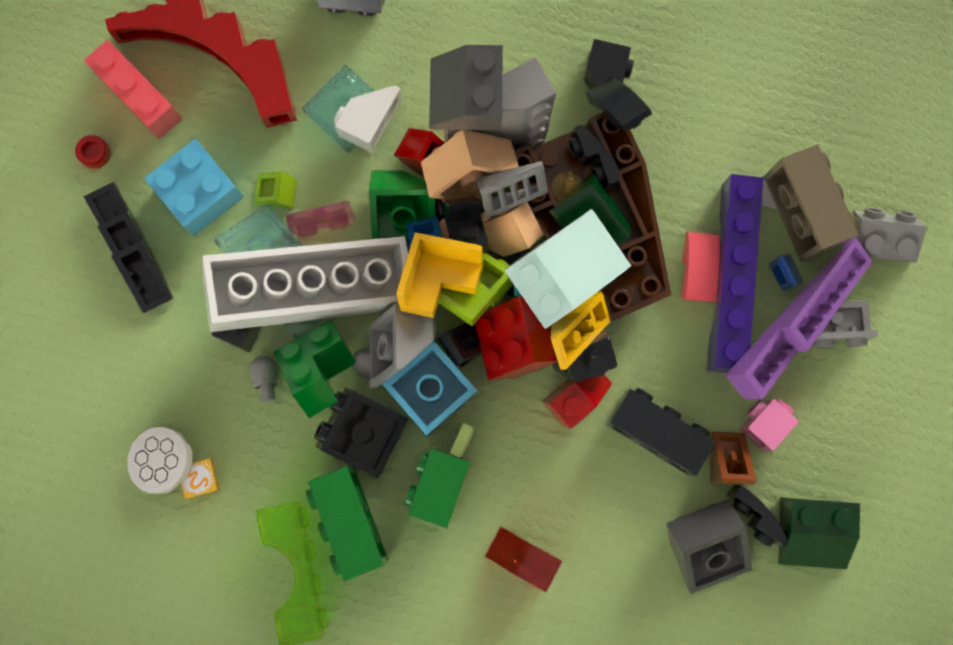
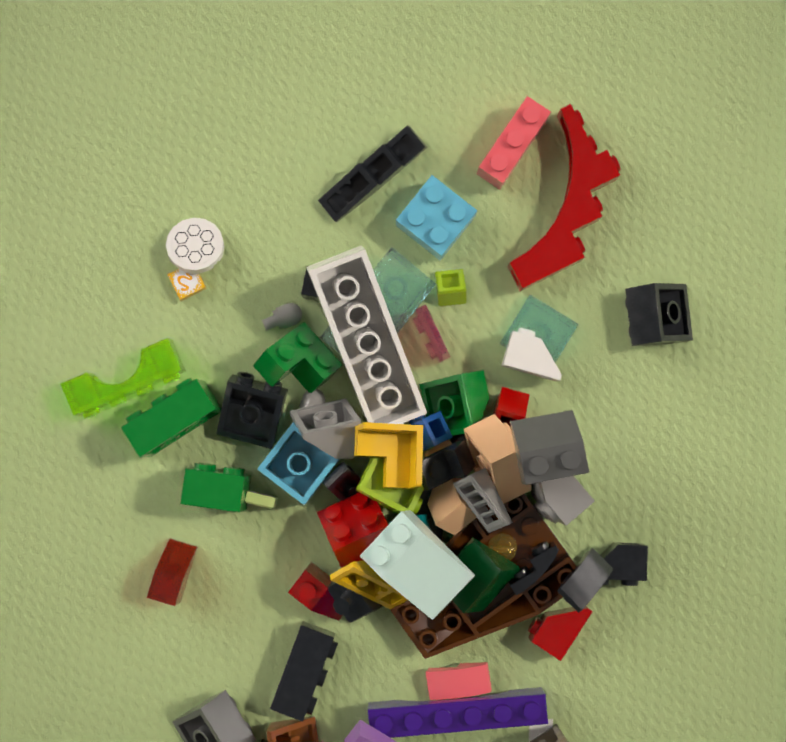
camera: 85 degrees right, 5 degrees up
(93, 152) = (451, 120): red tile -> none
(665, 150) = (558, 630): none -> red slope

